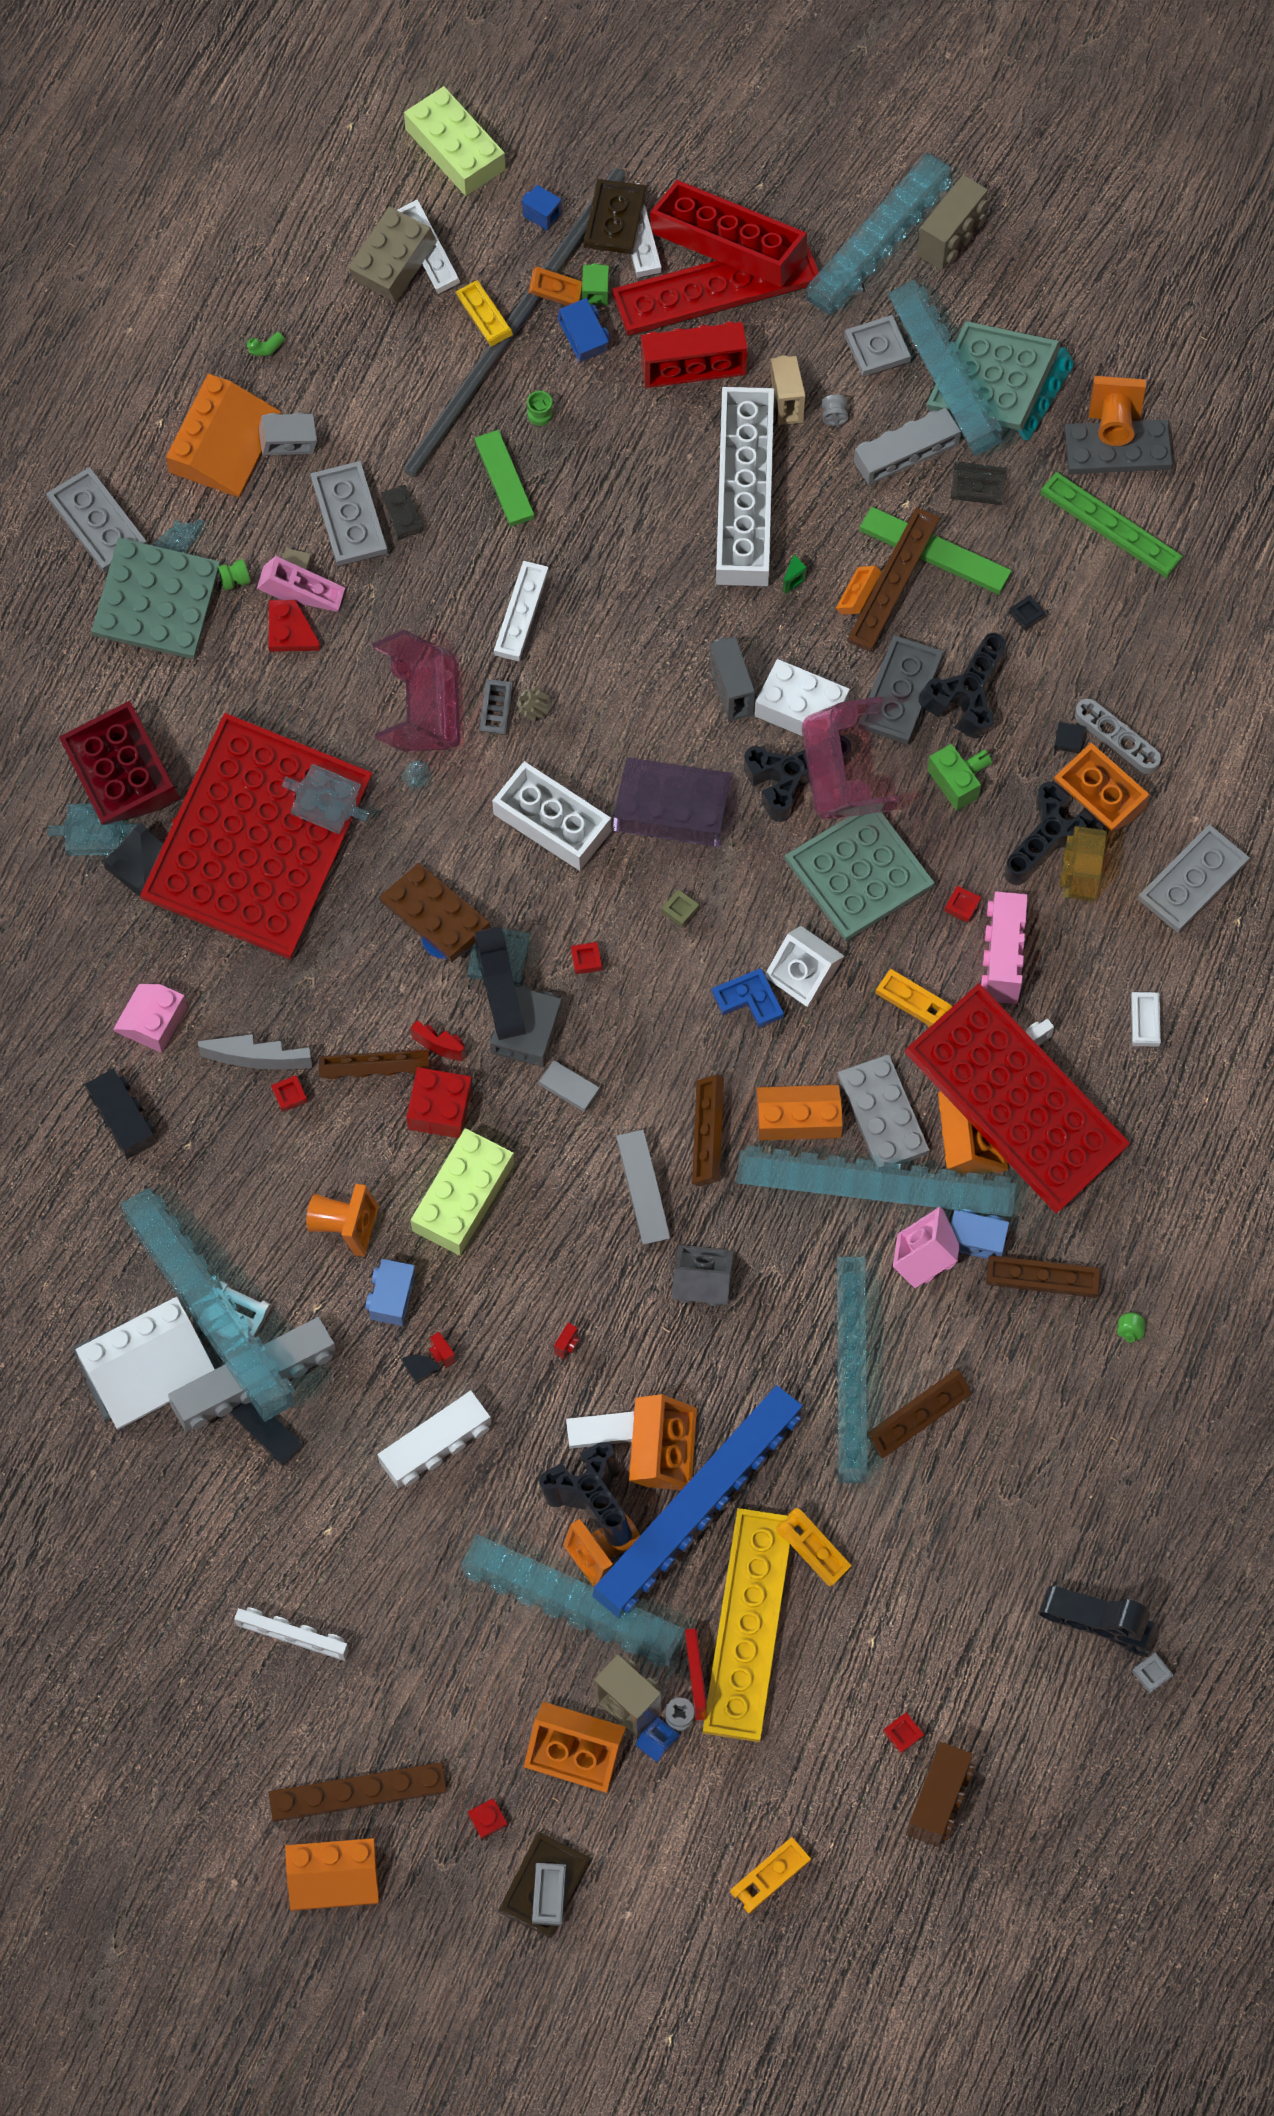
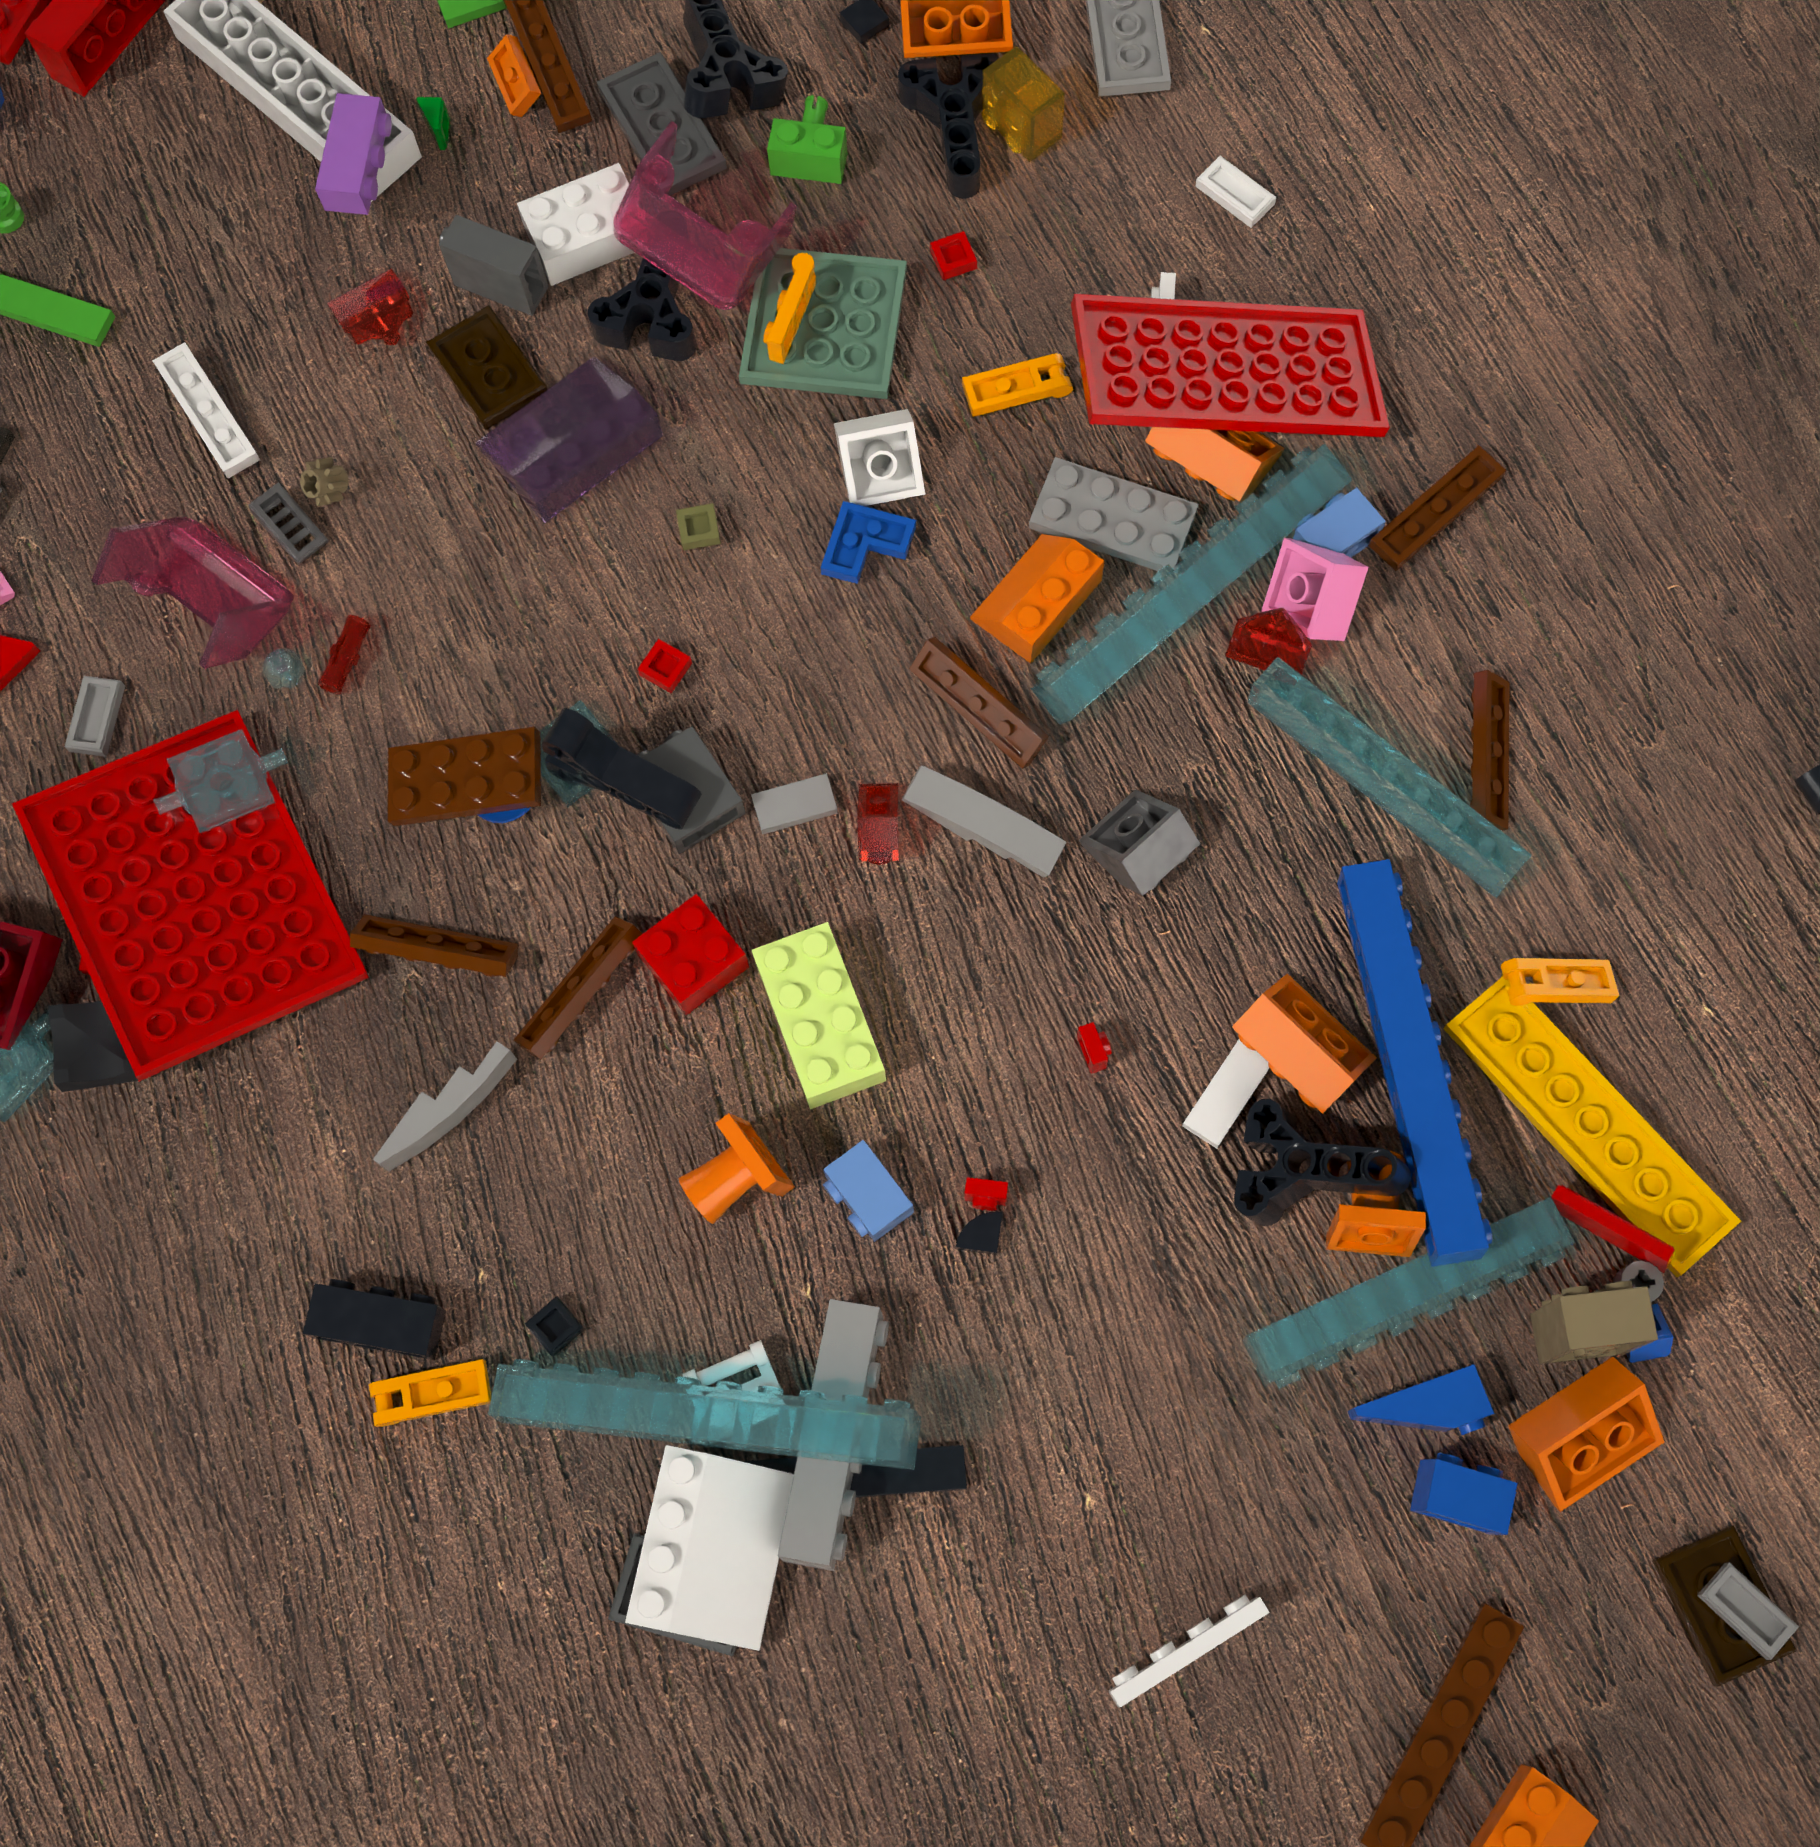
camera: 45 degrees left, 5 degrees up
(108, 1170) = (431, 1392): none -> light orange plate
(152, 1015) = (289, 1186): bright pink slope -> none
(192, 1201) = (554, 1326): none -> black tile
(289, 1093) = (527, 1109): red plate -> none
(308, 708) = (95, 716): none -> light grey tile
(334, 976) = (434, 945): none -> reddish brown plate
(434, 1440) = (1087, 1289): white brick -> none
(443, 1045) = (630, 892): red slope -> none
(449, 797) = (344, 654): none -> clear red pin
(487, 1707) = (1464, 1495): none -> blue brick
(487, 1818) = (1592, 1605): red plate -> none
(527, 1661) = (1436, 1405): none -> blue slope
(552, 815) = (470, 565): white brick -> none
(594, 1135) = (878, 823): none -> clear red slope
(655, 641) = (373, 309): none -> clear red slope
(675, 725) = (487, 367): none -> dark brown tile
(723, 555) = (353, 154): none -> medium lavender brick
(845, 848) = (791, 308): none -> light orange plate
(876, 1247) = (1269, 635): none -> clear red slope
(1005, 946) = (1041, 248): bright pink wedge -> none
(1131, 1327) = (1562, 471): bright green piece -> none

